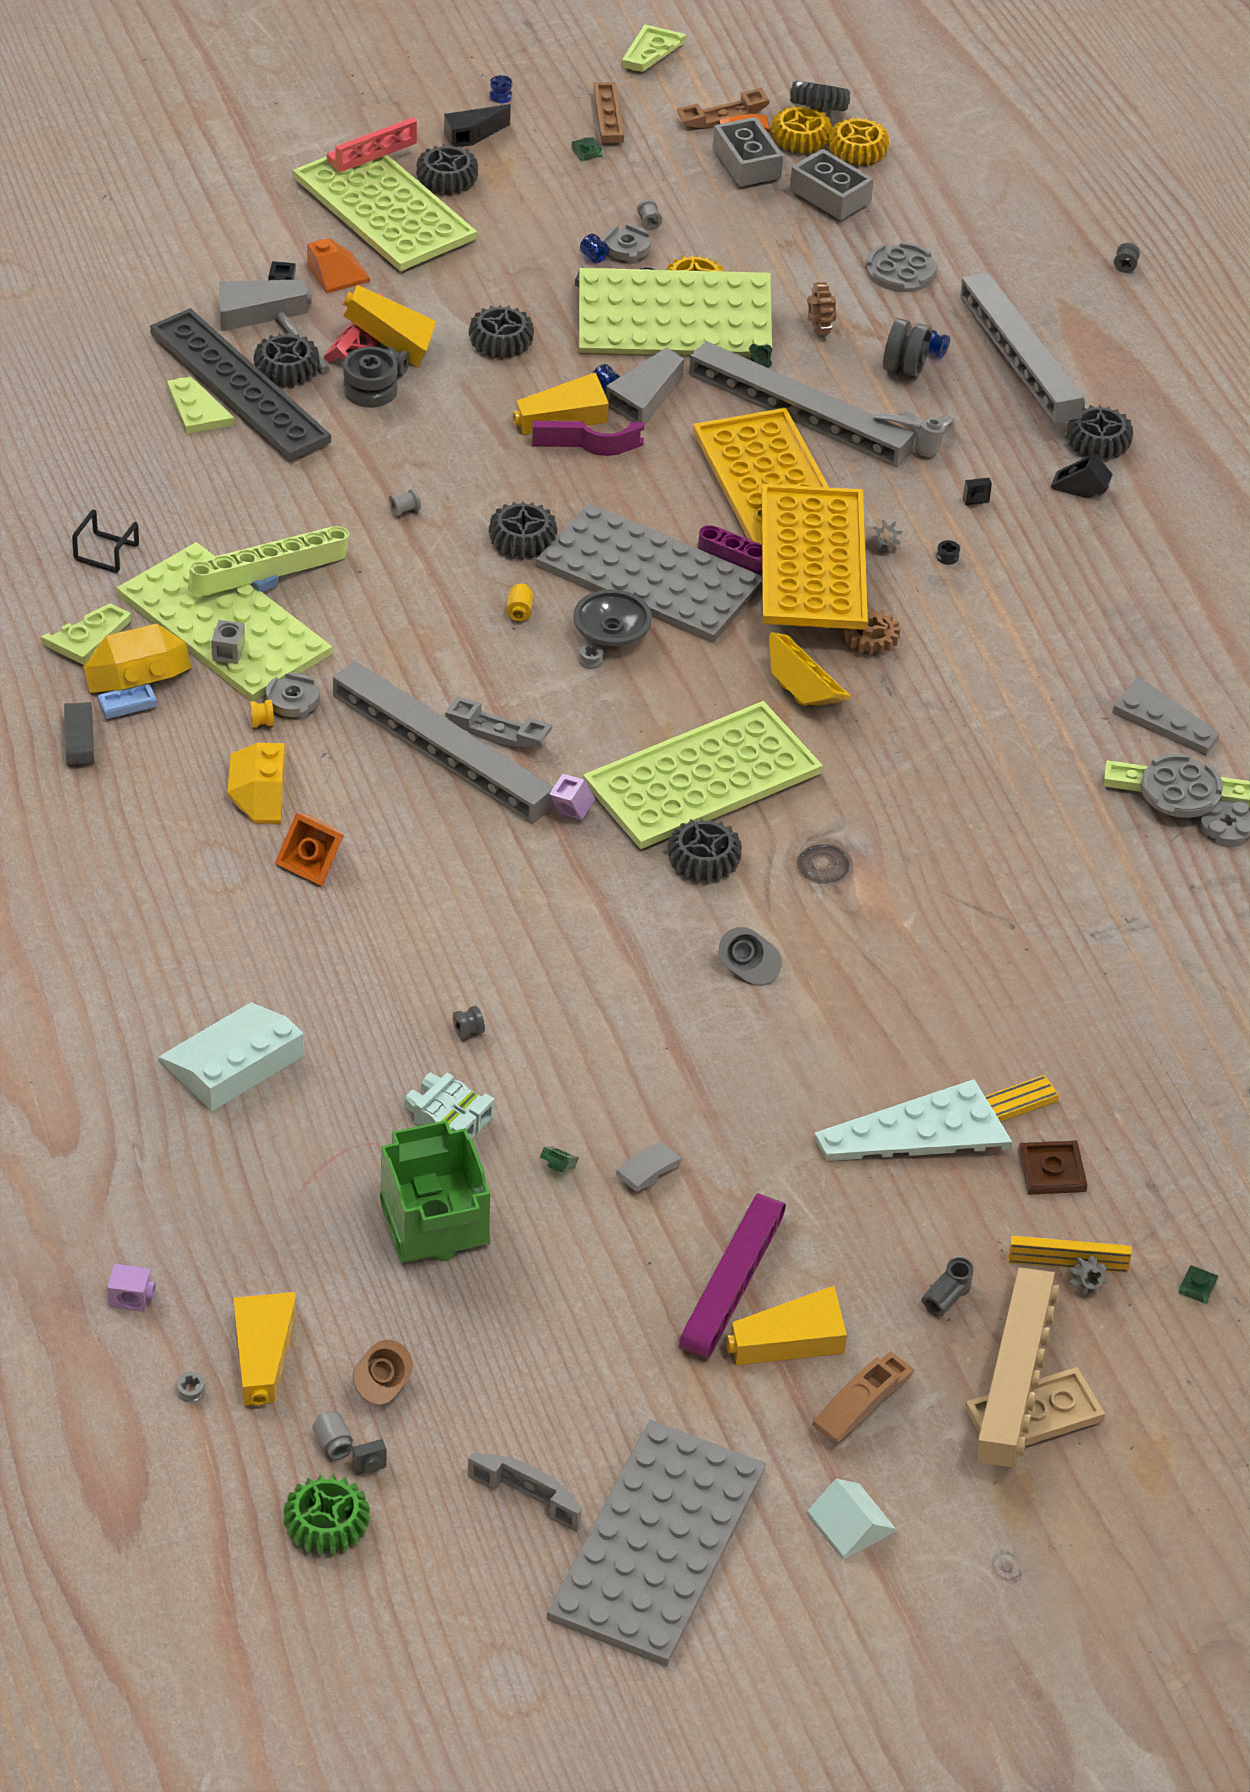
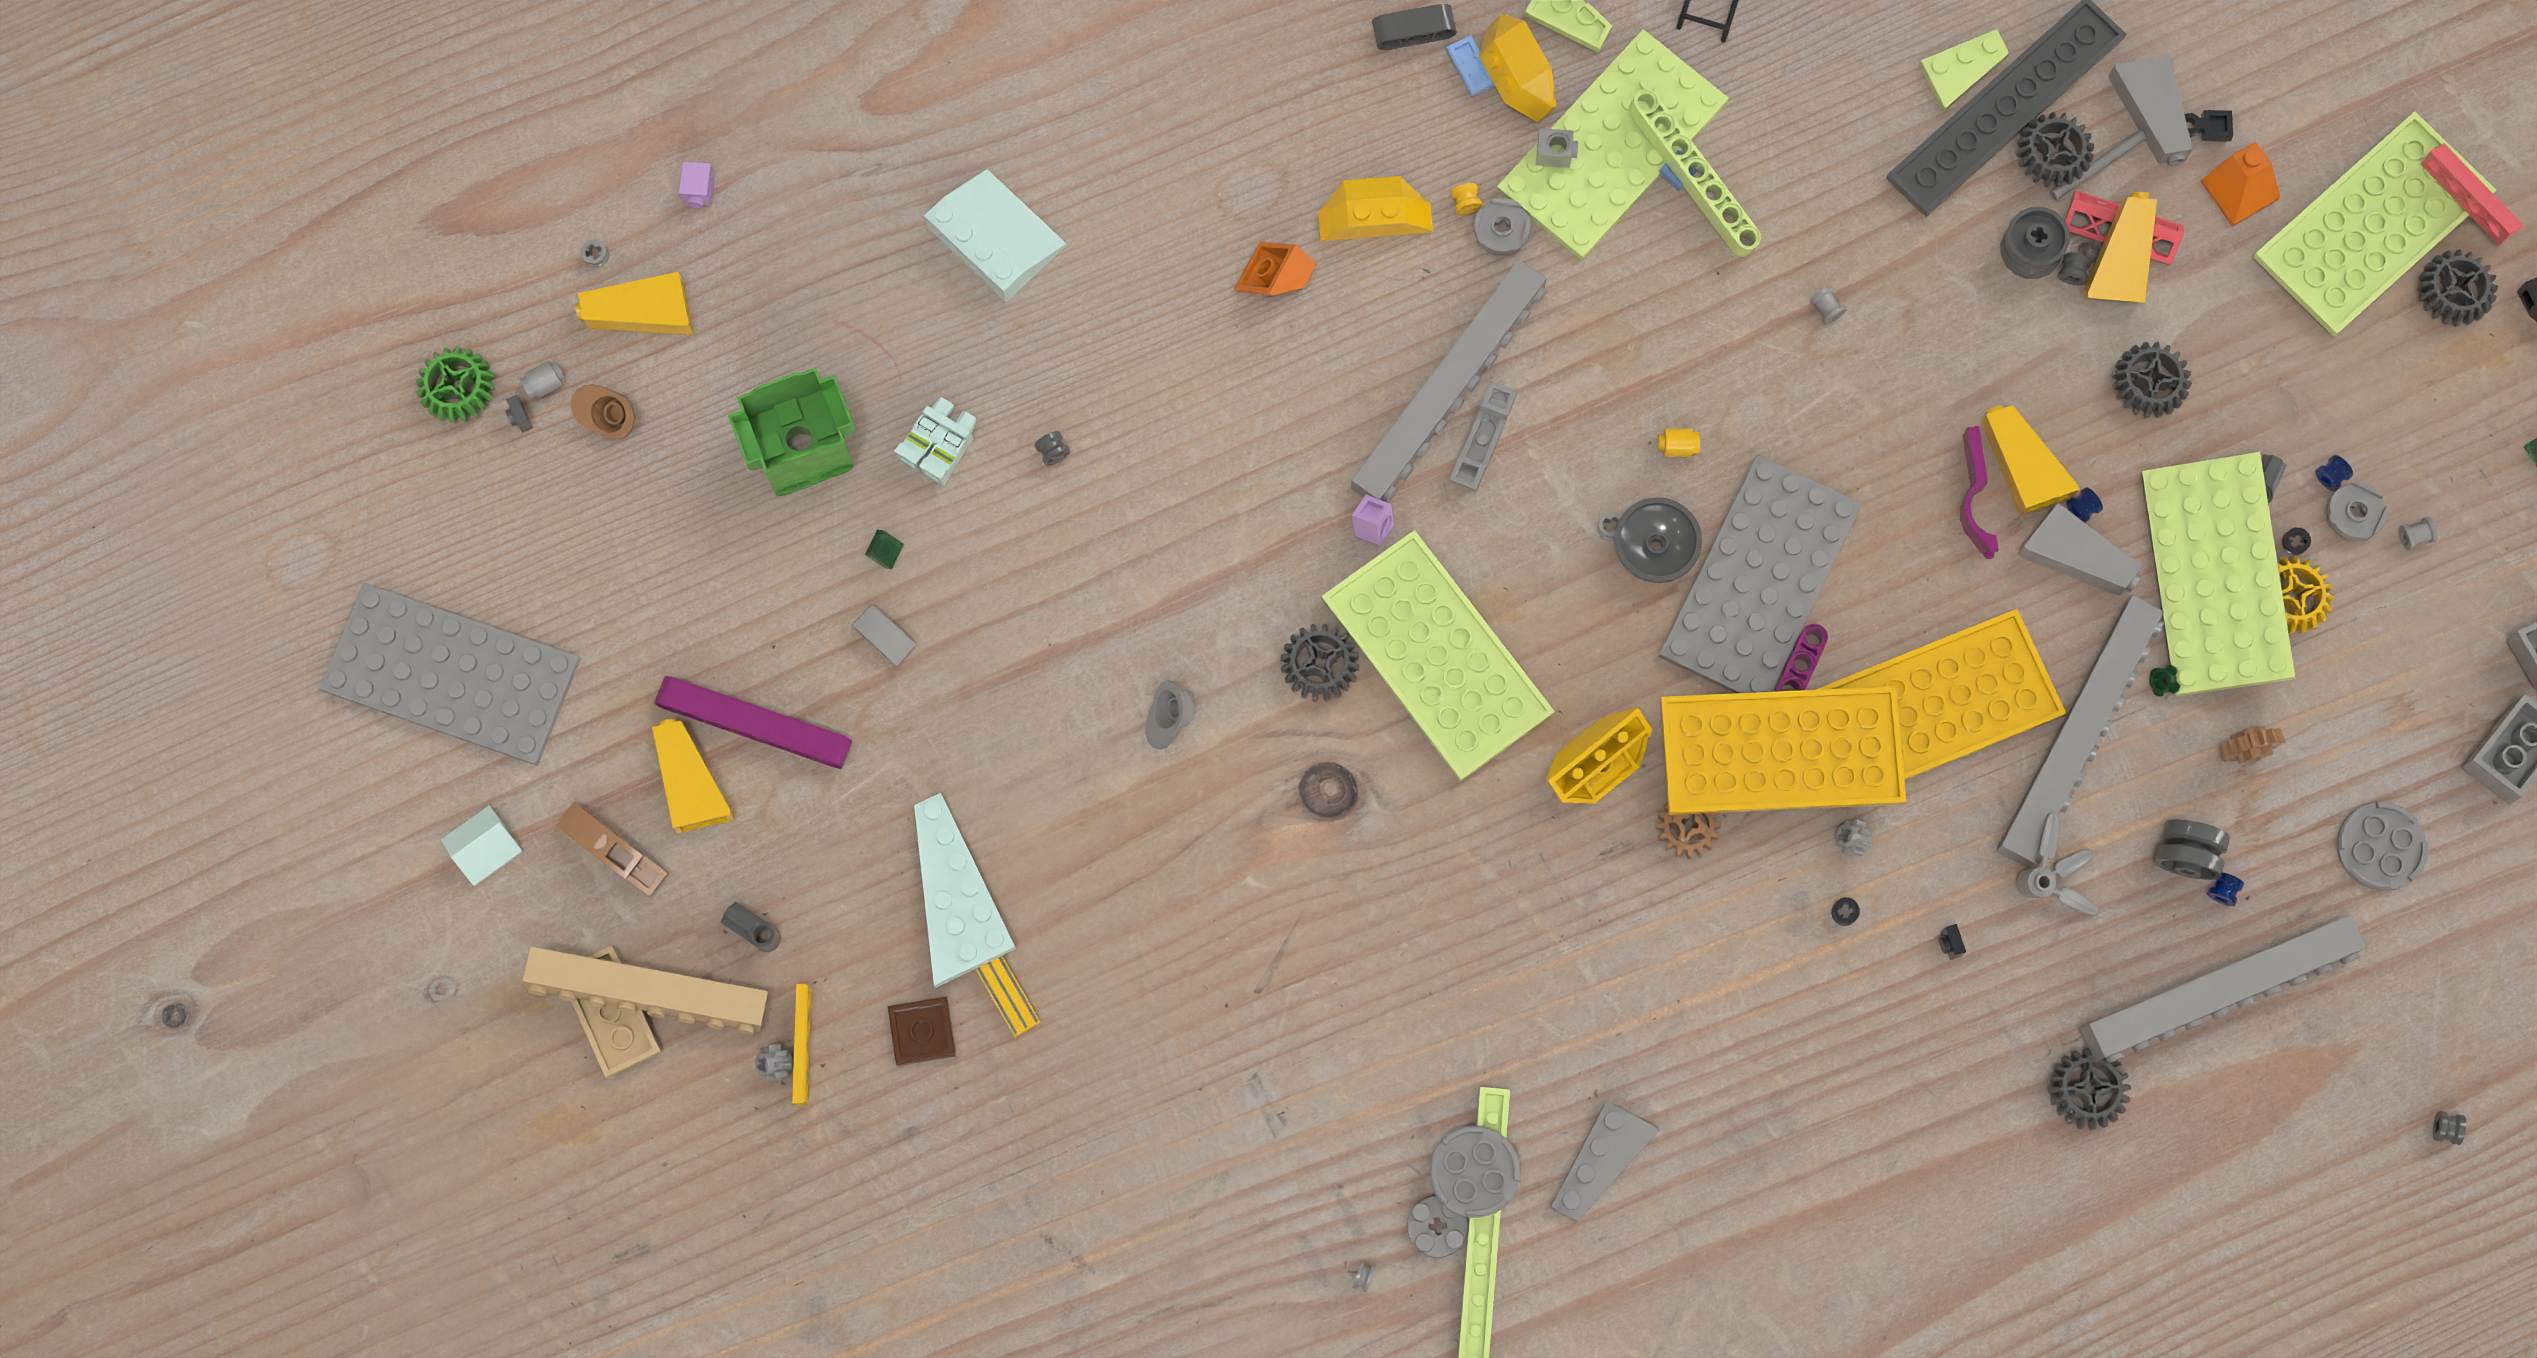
camera: 90 degrees right, 30 degrees up
(494, 1469) = (474, 585): light grey slope -> none
(522, 529) = (1824, 430): dark grey gear -> none
(1083, 477) = (1997, 1067): black slope -> none
(1198, 1284) = (781, 1175): clear green plate -> none

